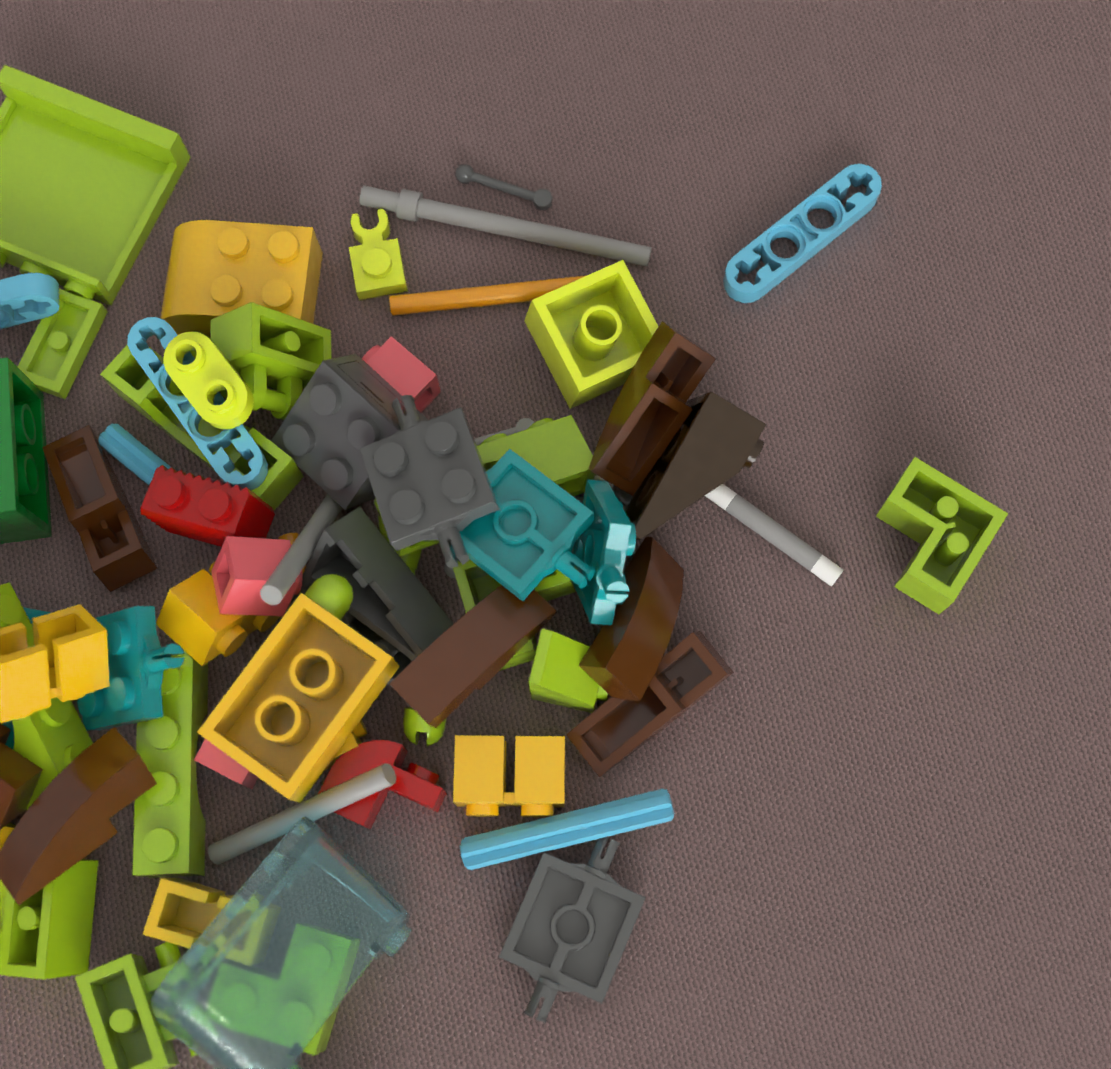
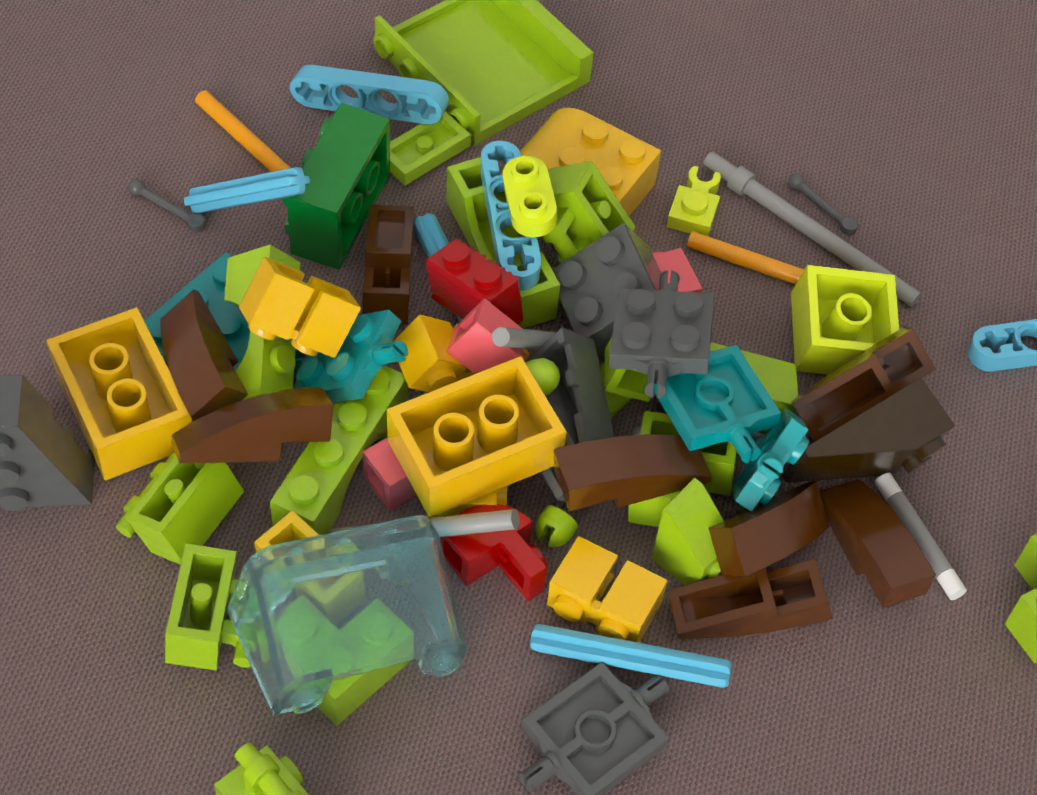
camera: 20 degrees right, 20 degrees down
(735, 567) = (877, 542): none -> reddish brown slope

